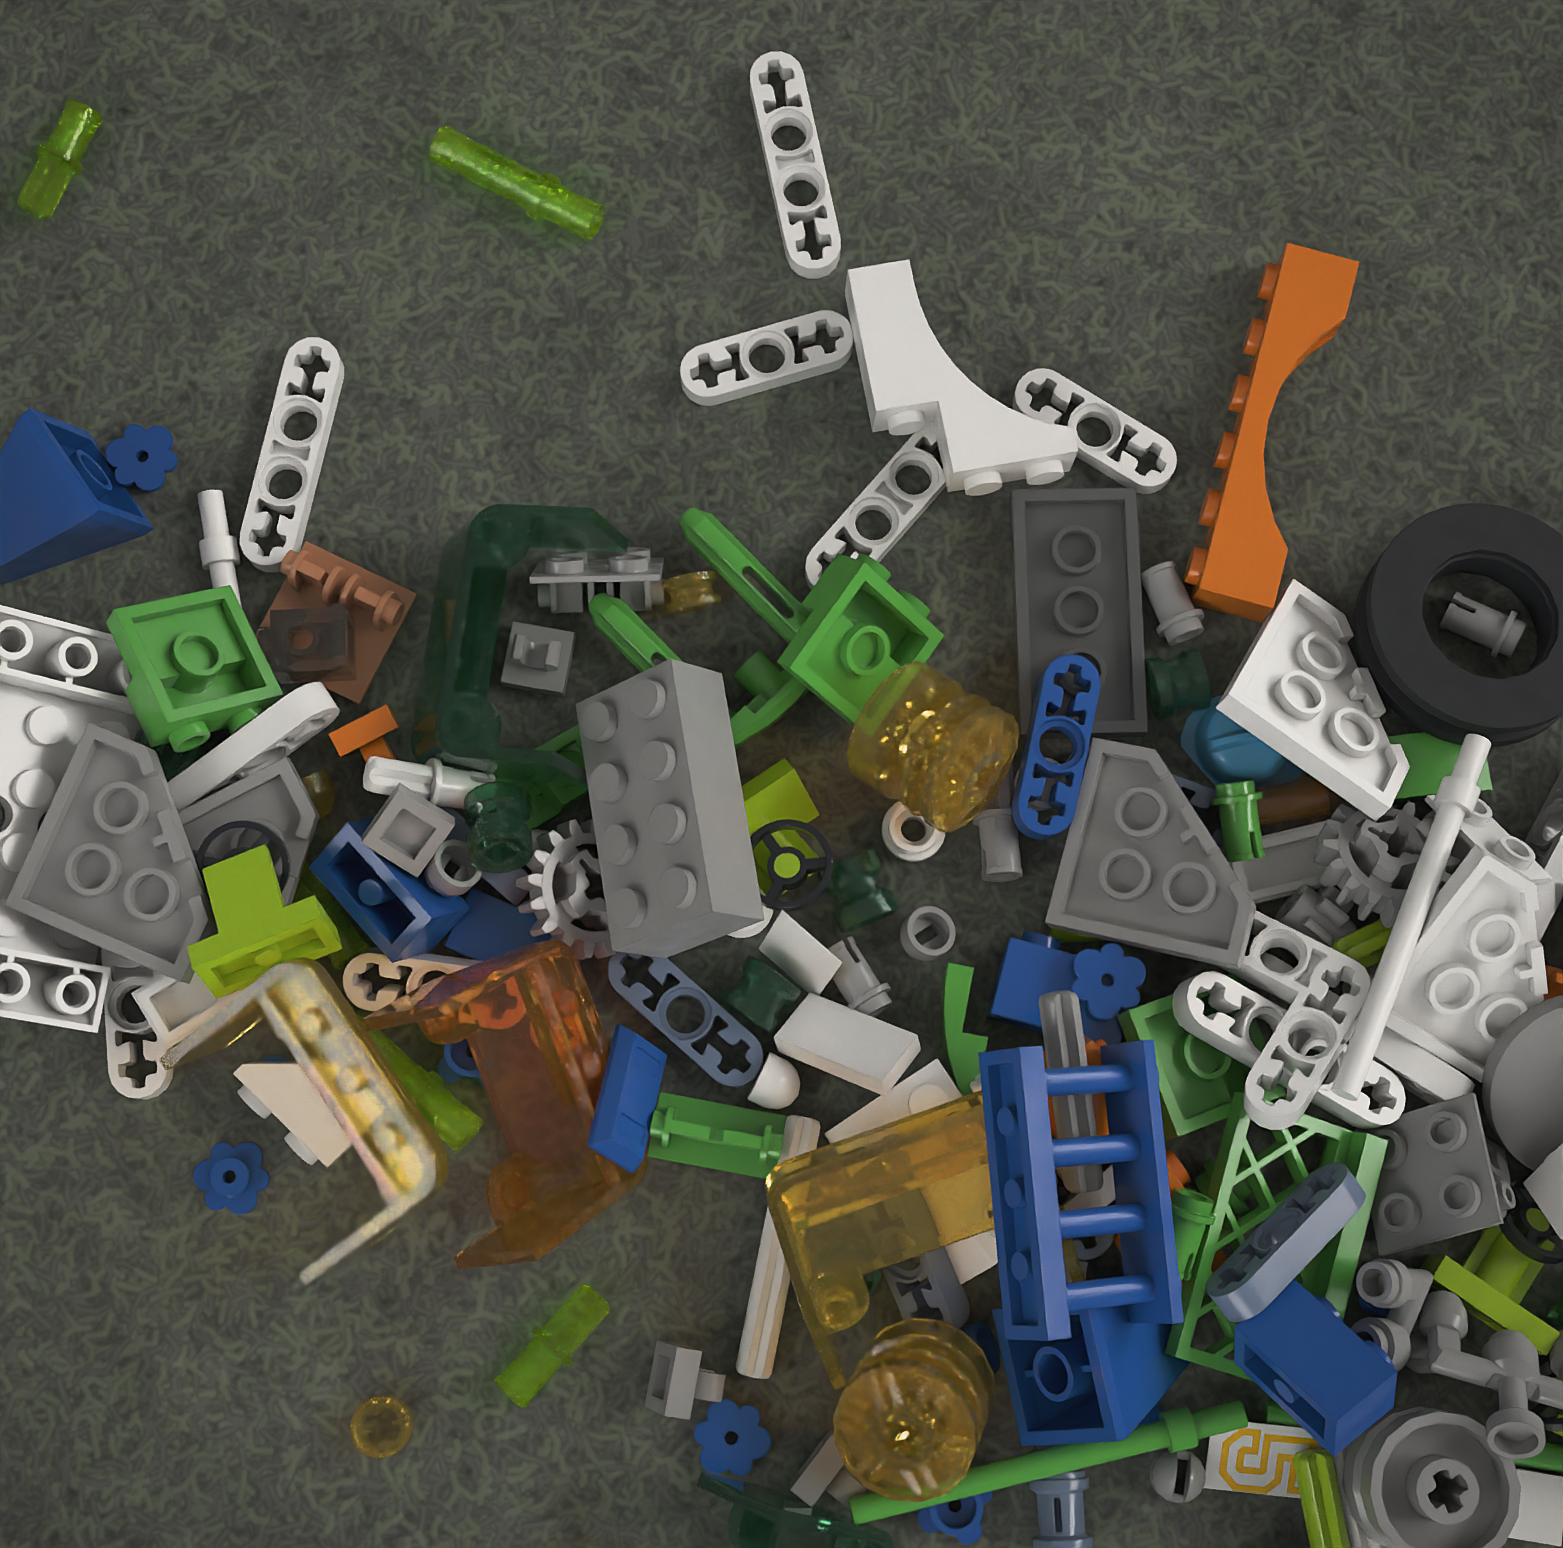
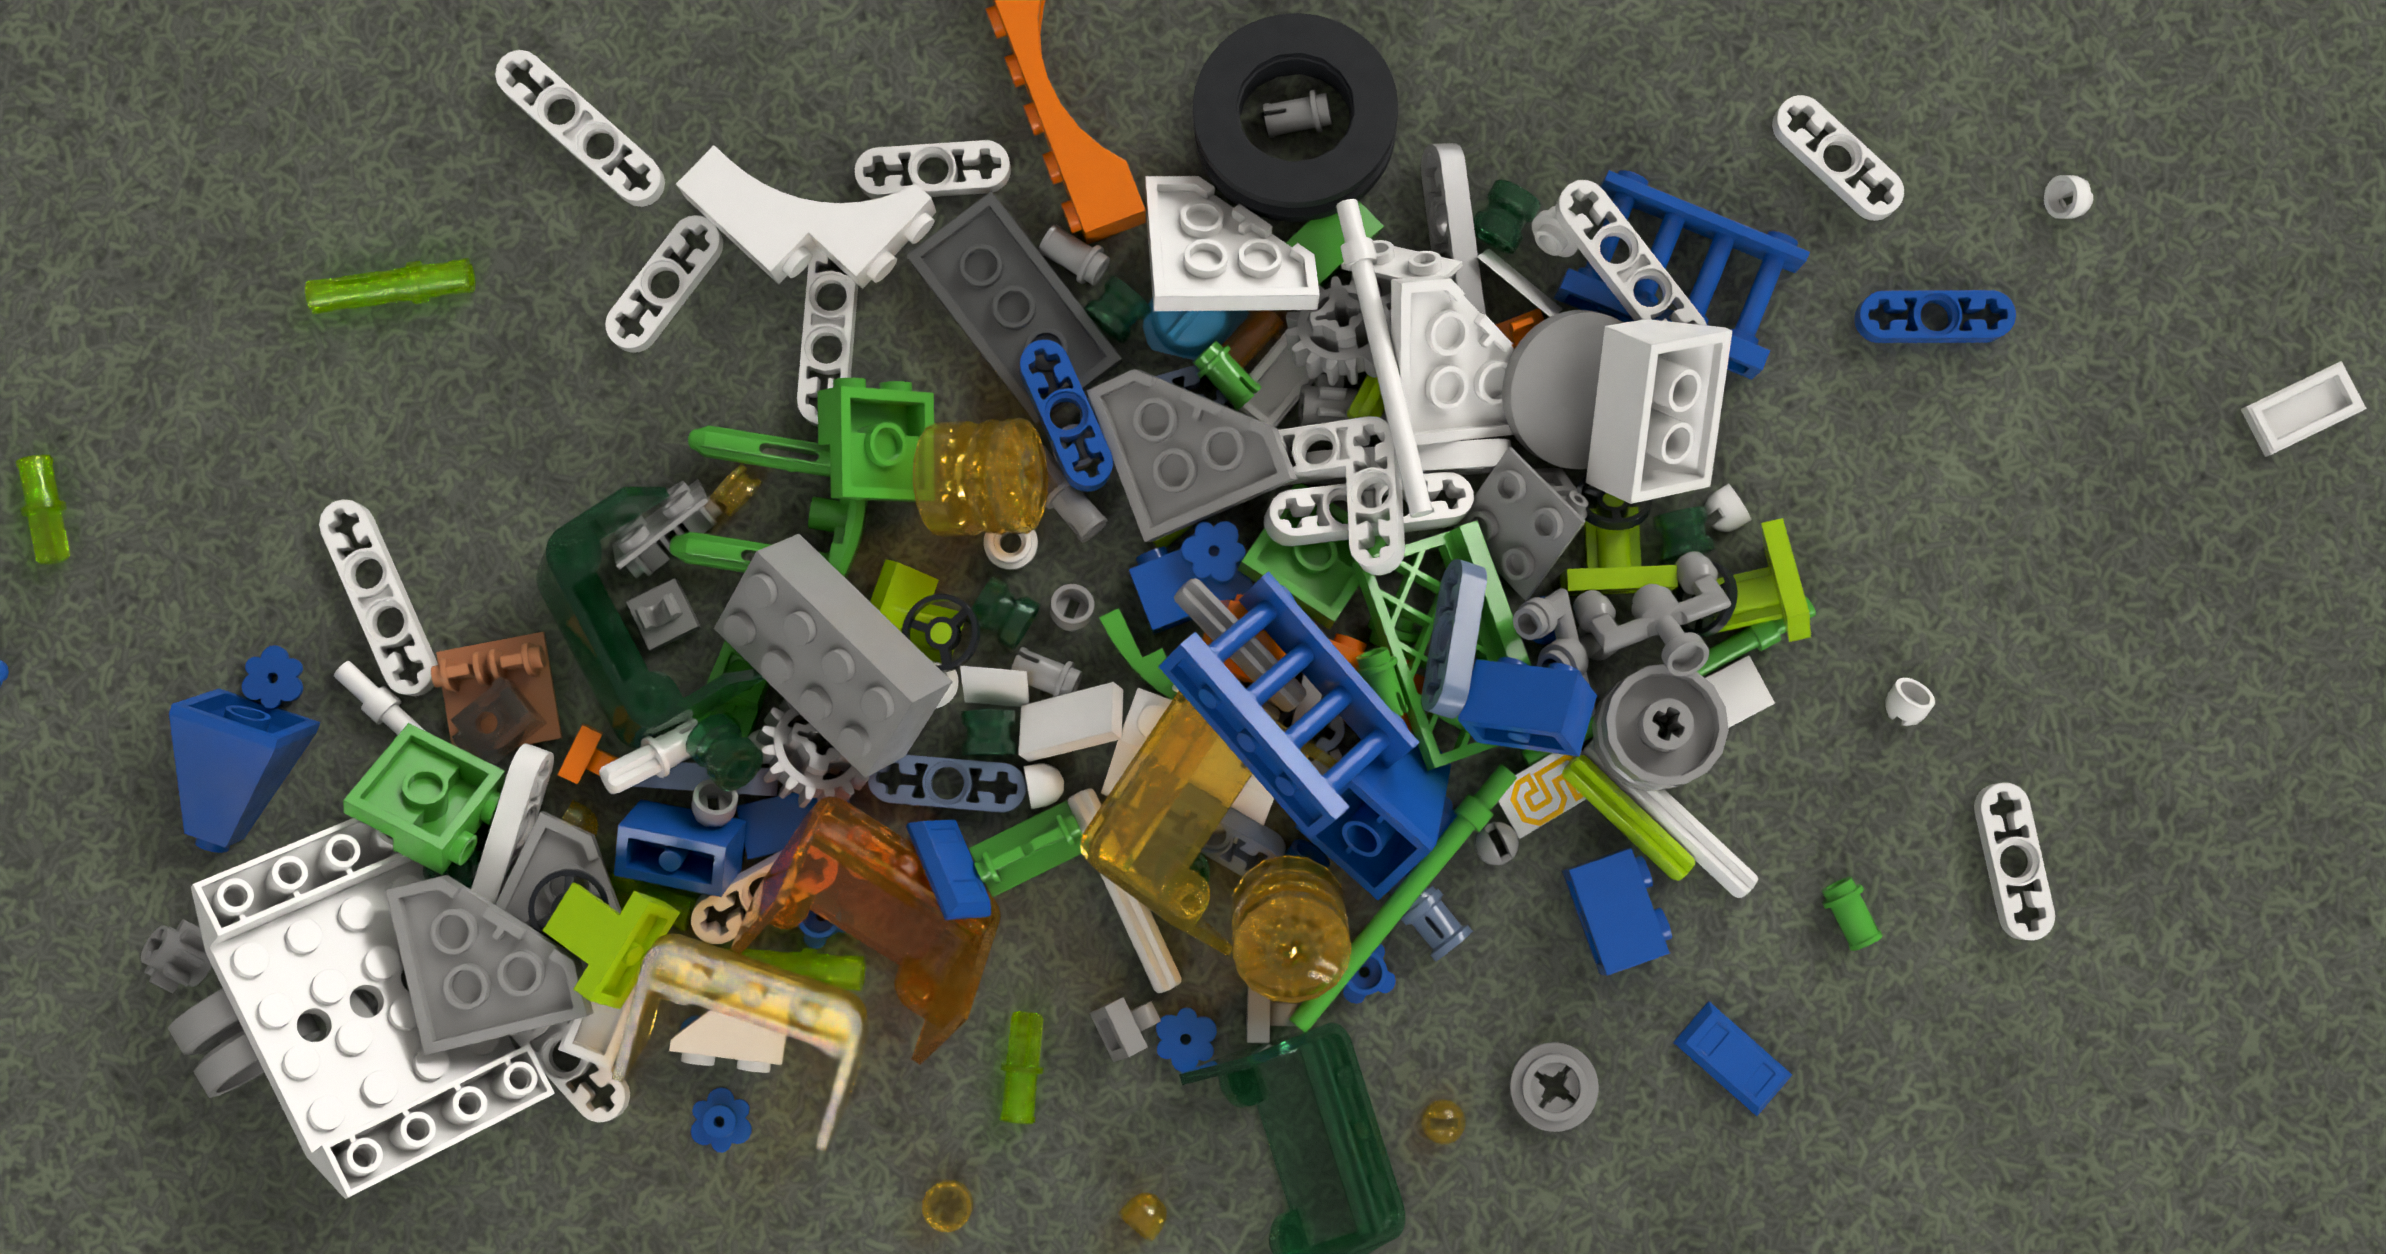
camera: 35 degrees left, 5 degrees up
(408, 830) = (664, 799): light grey tile -> none

